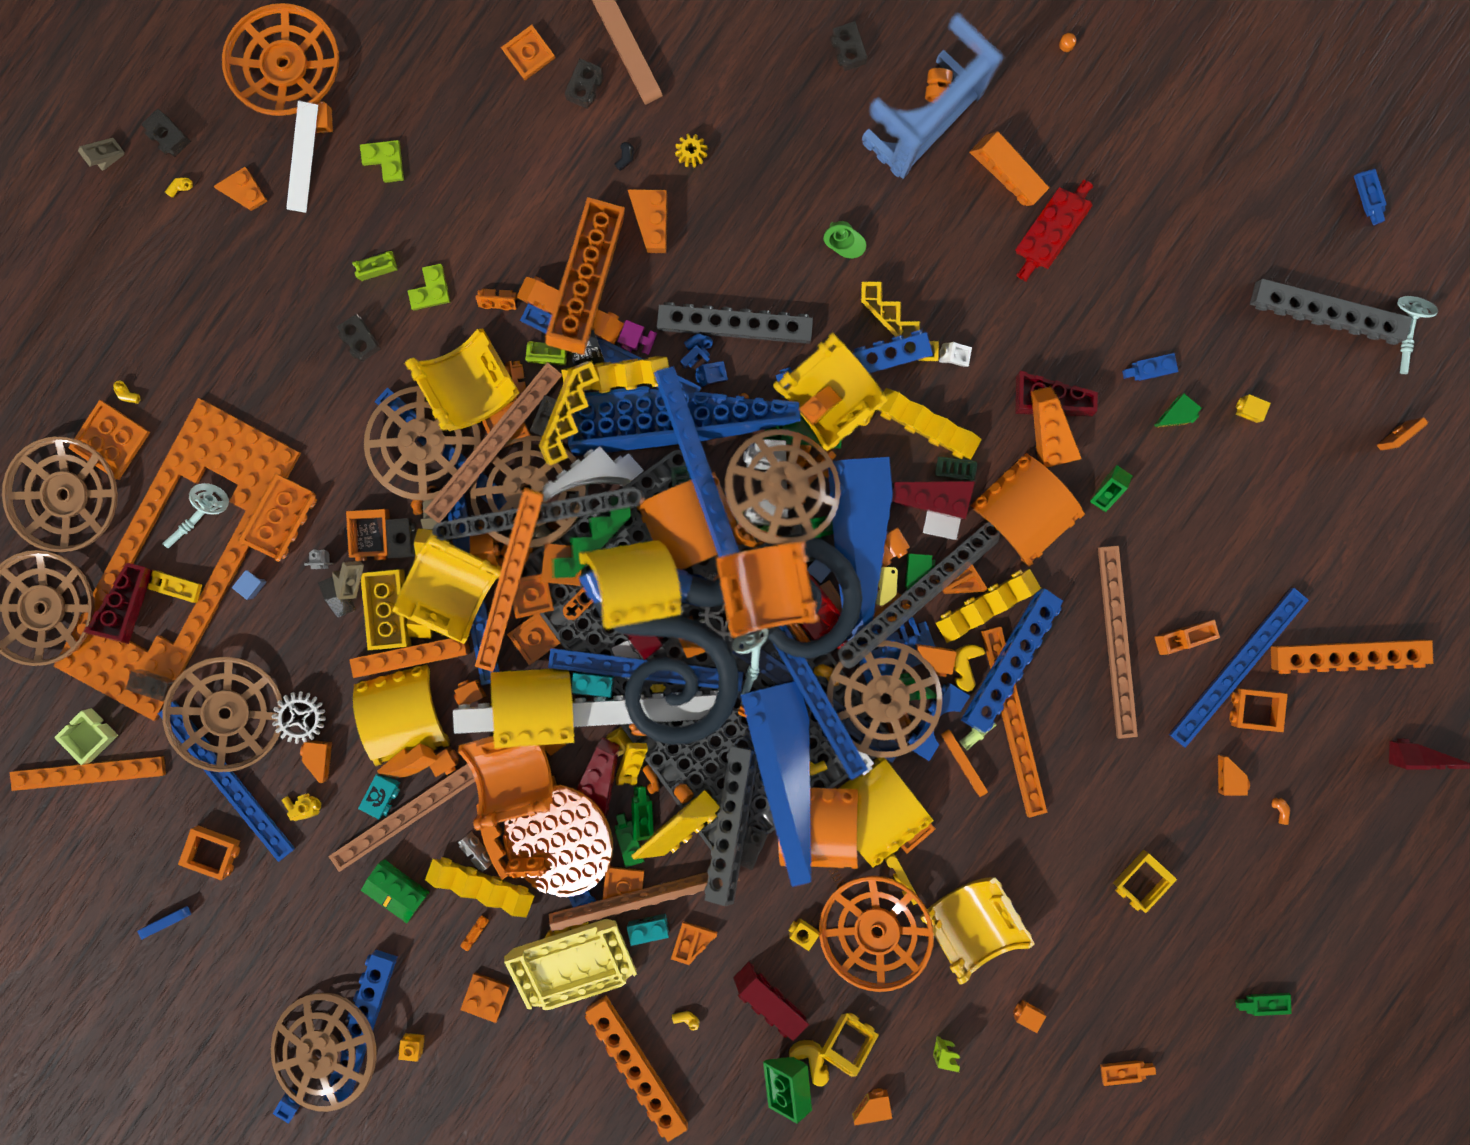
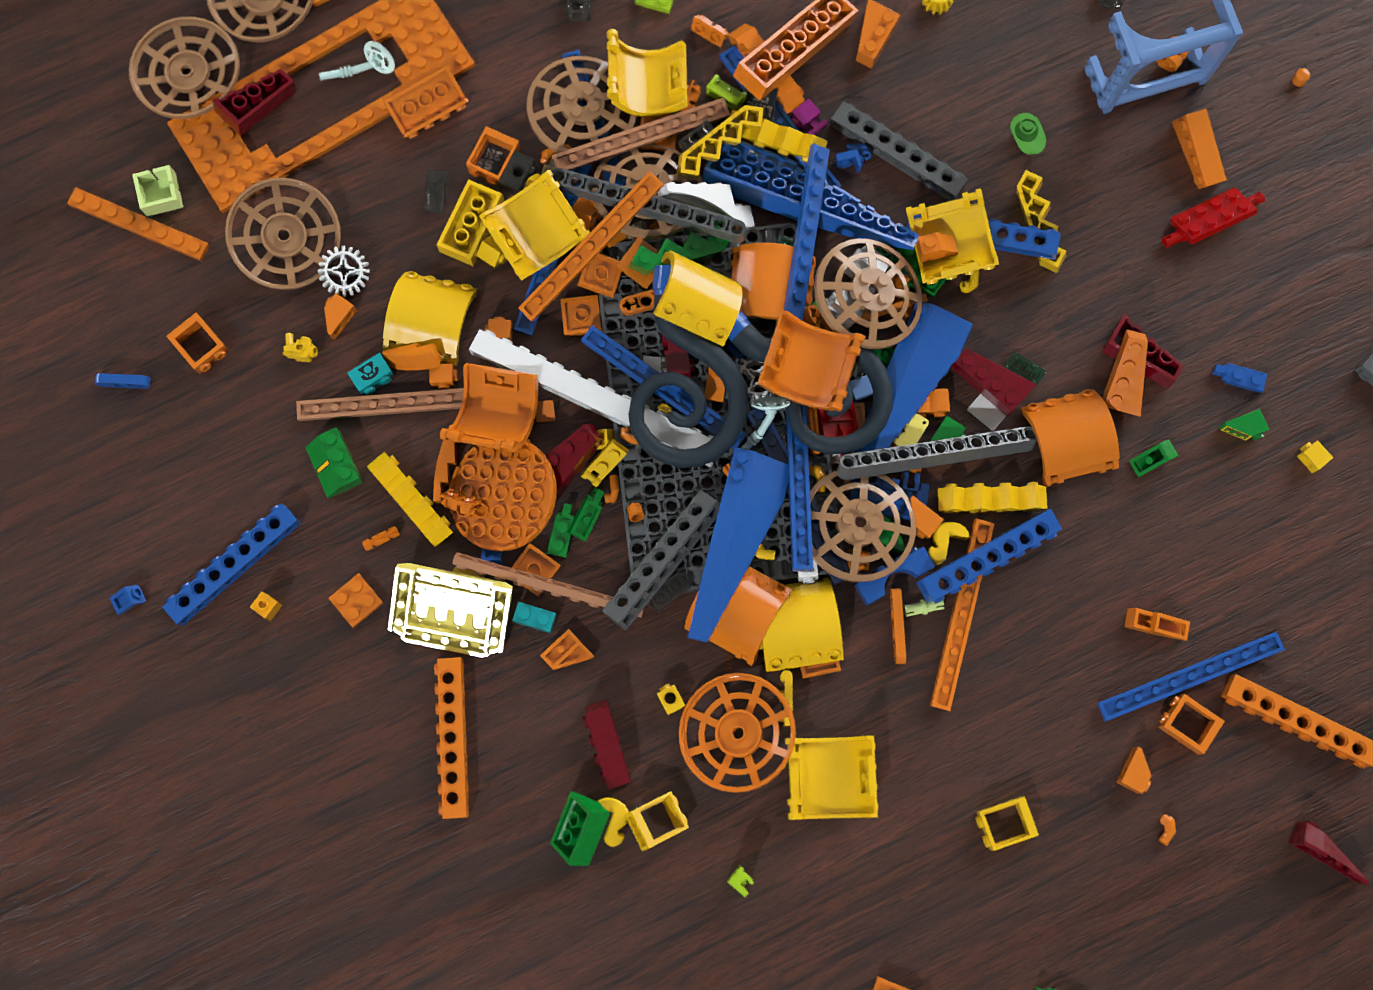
camera: 30 degrees right, 10 degrees down
(149, 684) = (236, 174): clear smoke brick -> none
(175, 586) = (307, 112): yellow plate -> none
(236, 793) = (251, 308): blue plate -> none
(248, 585) = (369, 143): medium blue panel -> none
(319, 559) = (439, 152): light grey hinge -> none
(330, 1049) = (193, 570): medium nougat dish -> none
(347, 580) = (455, 179): dark tan slope -> none
(408, 657) = (439, 263): orange arch -> none
(471, 845) = (424, 459): light grey hinge -> none
(532, 707) = (547, 363): yellow hinge -> none
(592, 684) = (610, 374): teal brick -> none
(680, 827) = (614, 534): yellow slope -> none
(687, 1017) = (524, 719): yellow arm -> none
(711, 373) = (856, 180): blue bracket -> none
(873, 1108) = (647, 896): orange slope -> none
(930, 425) = (1016, 313): yellow brick -> none
(955, 354) = (1075, 274): white bracket -> none
(967, 582) = (982, 468): orange wing -> none
(1029, 1016) = (835, 890): orange brick -> none
(1117, 642) = (1091, 595): nougat plate -> none

